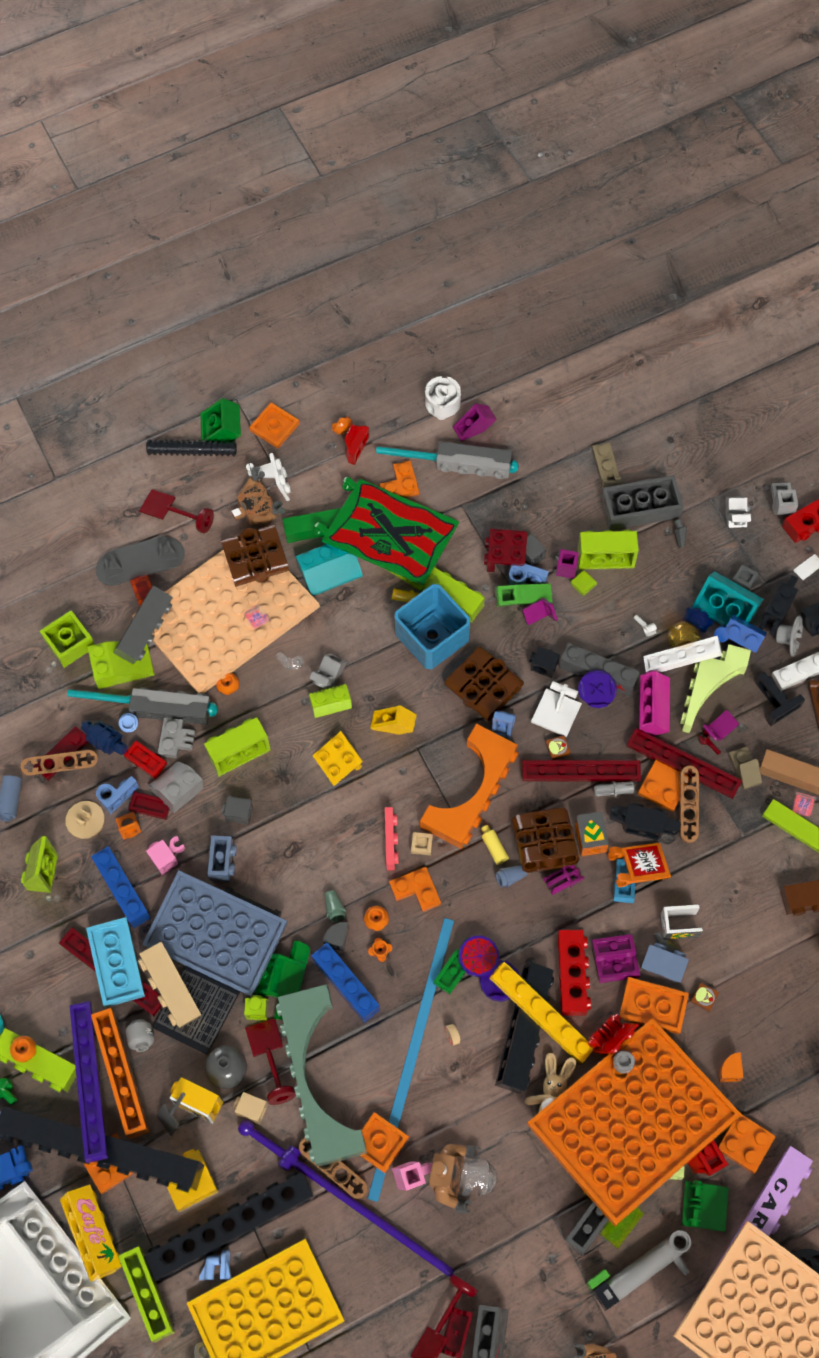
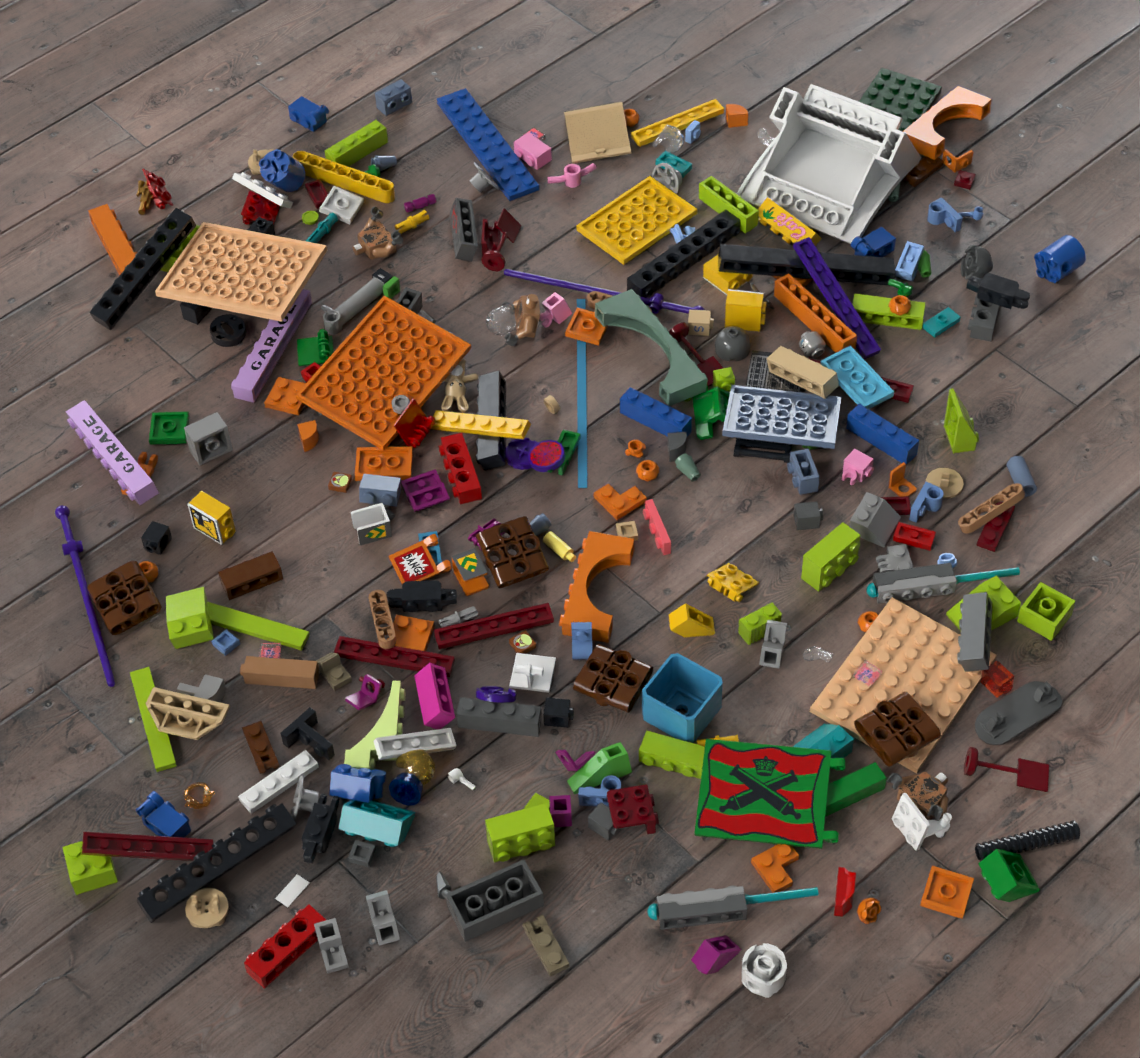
camera: 165 degrees right, 15 degrees down
(104, 737) = (959, 545): dark blue piece -> none

